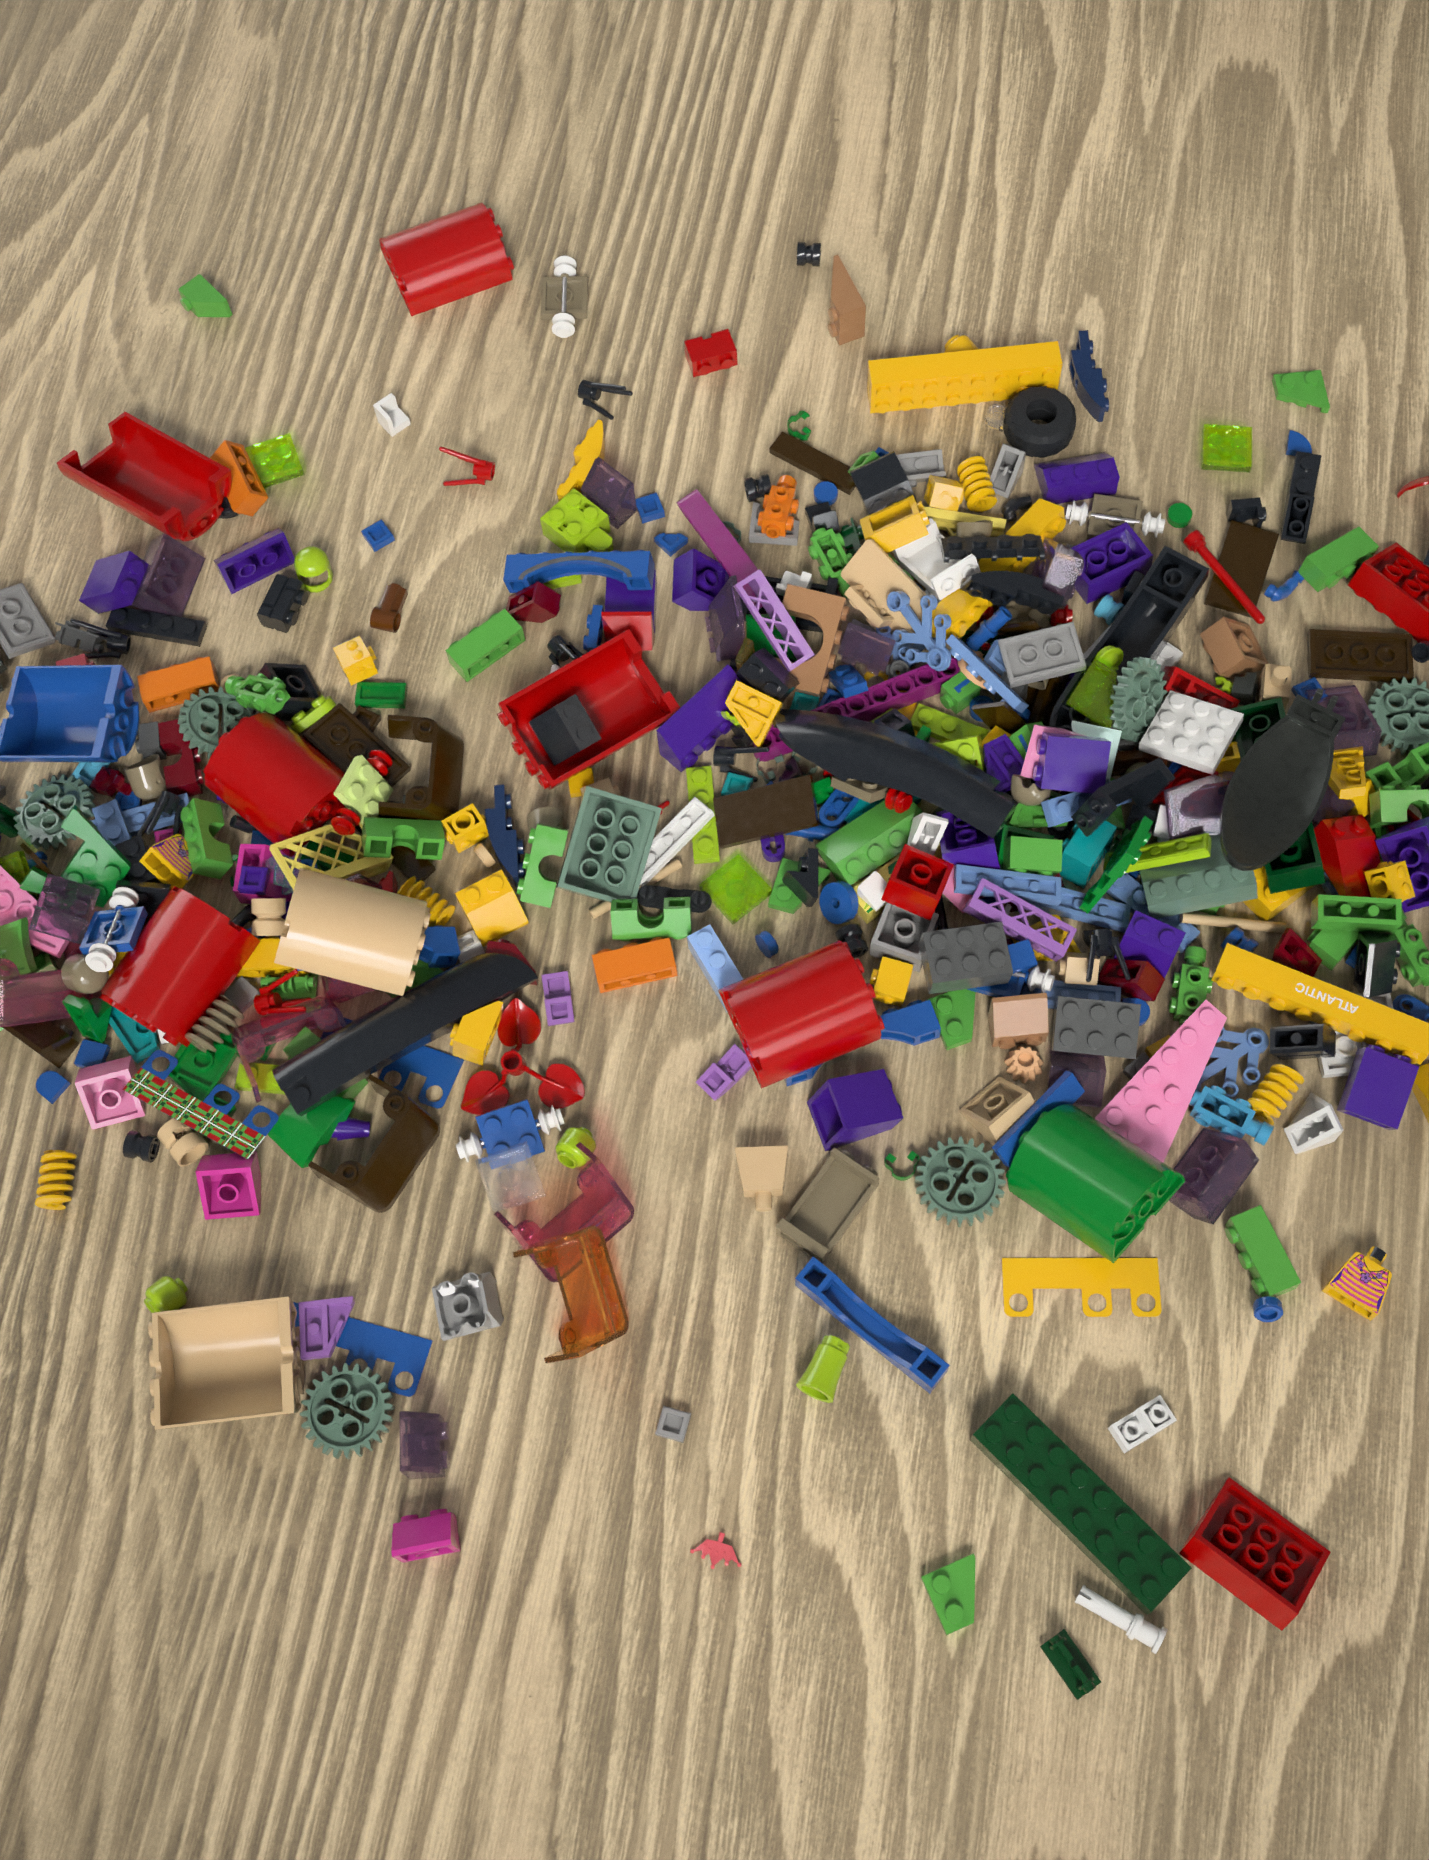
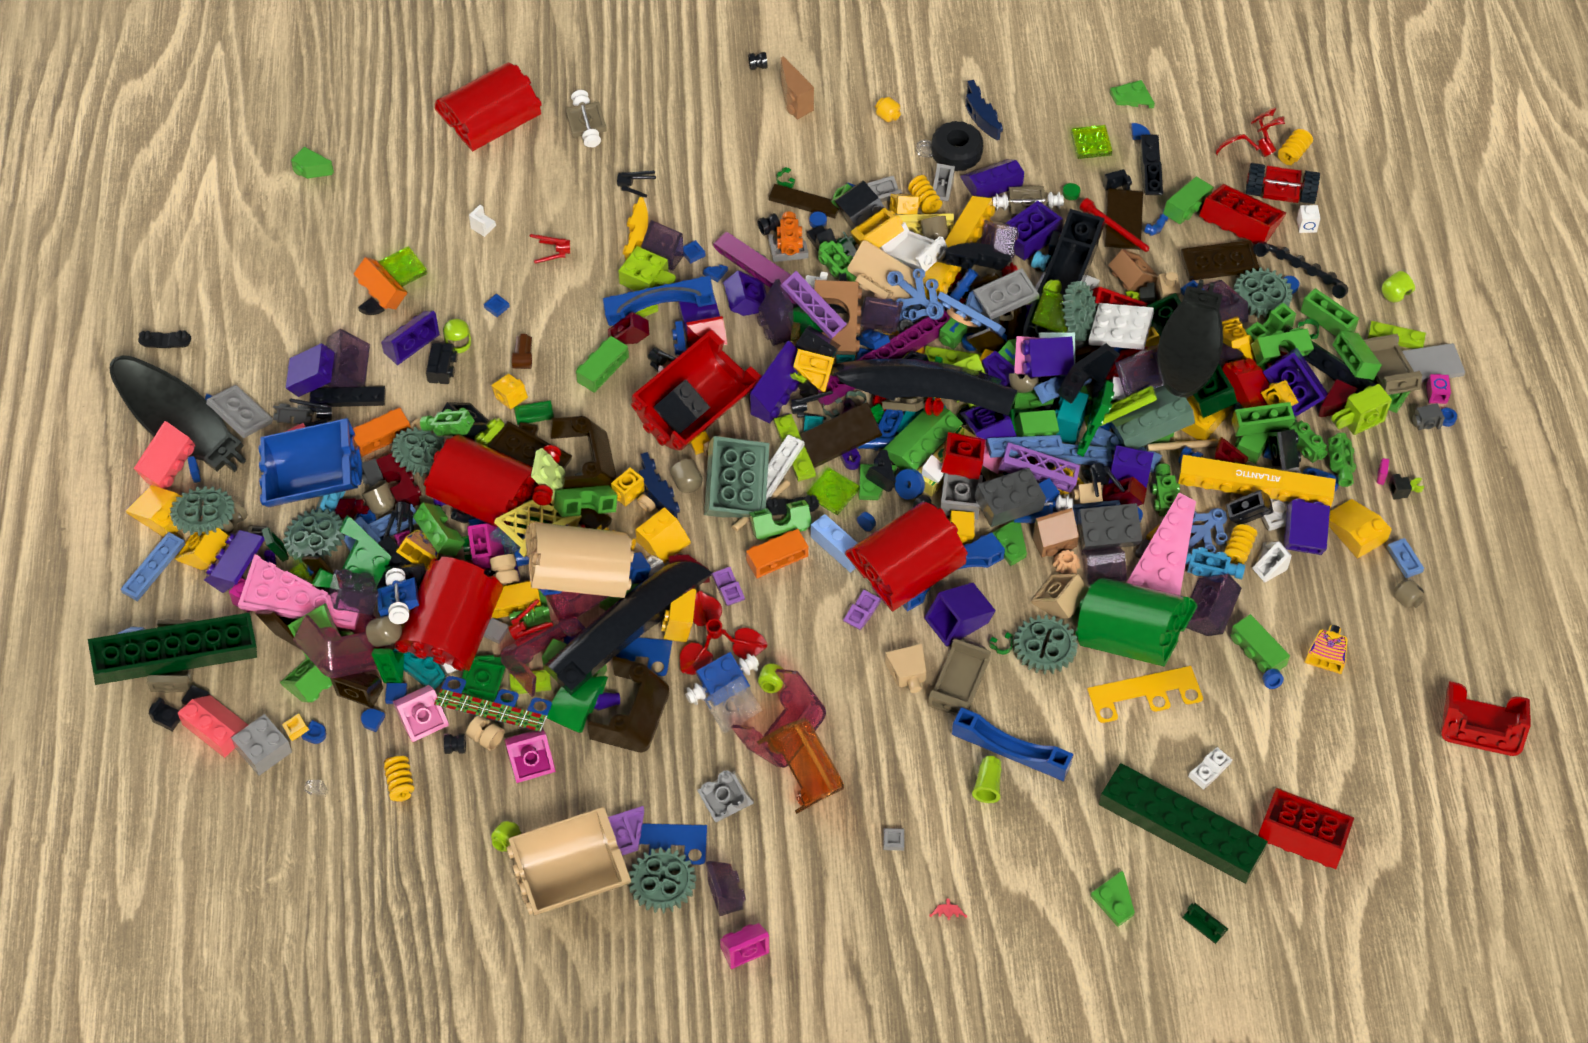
camera: 20 degrees left, 10 degrees down
(154, 478) = (317, 292): red cylinder -> none
(214, 1024) = (487, 649): dark tan piece -> none
(253, 880) = (486, 547): dark purple tile -> none
(536, 887) = (691, 481): bright green arch -> none
(711, 353) = (706, 140): red brick -> none
(927, 832) = (960, 421): white slope -> none
(961, 376) = (893, 125): yellow brick -> none
(993, 547) = (951, 231): black hinge -> none
(1014, 505) = (953, 205): black arm -> none
(1063, 1091) = (1100, 569): blue tile -> none
(1134, 1625) = (1240, 889): white pin -> none

